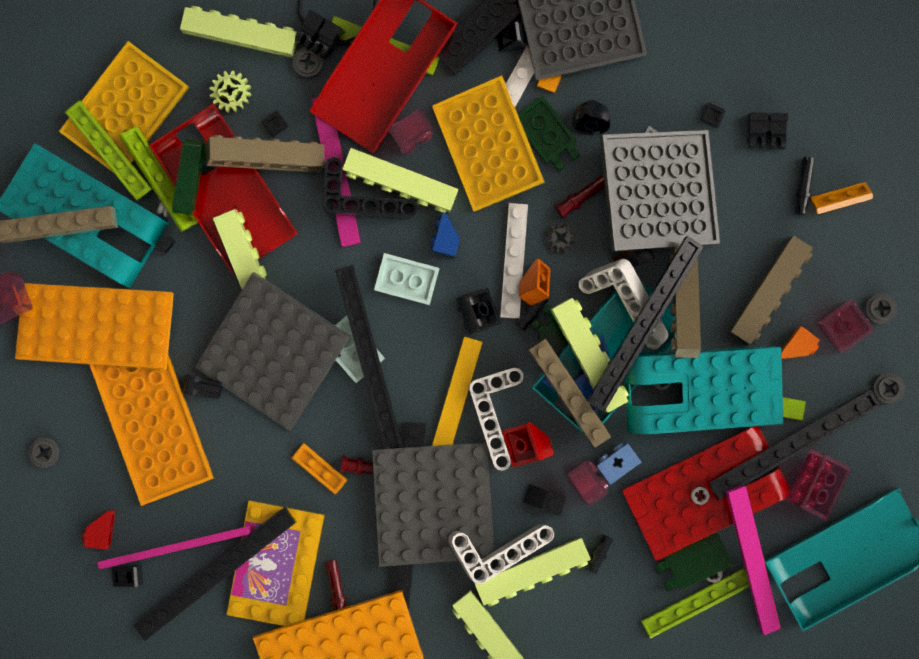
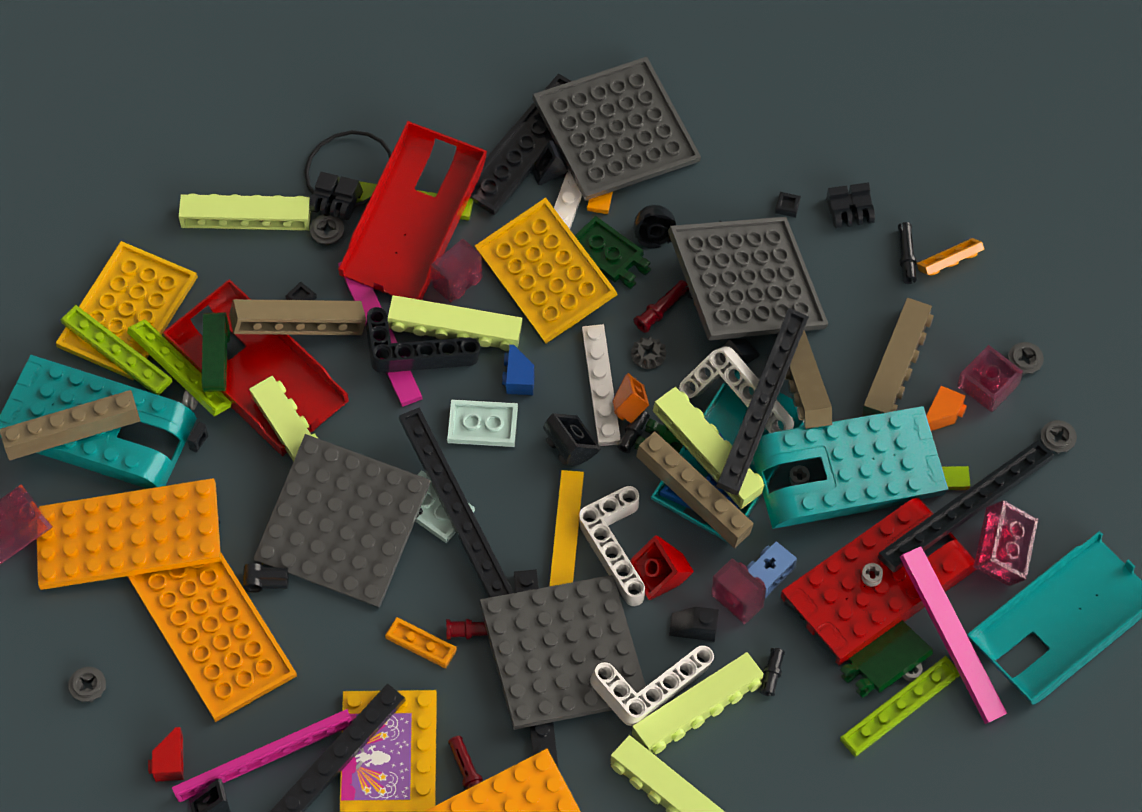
camera: 20 degrees left, 25 degrees down
(223, 92) = (246, 270): yellowish green gear -> none

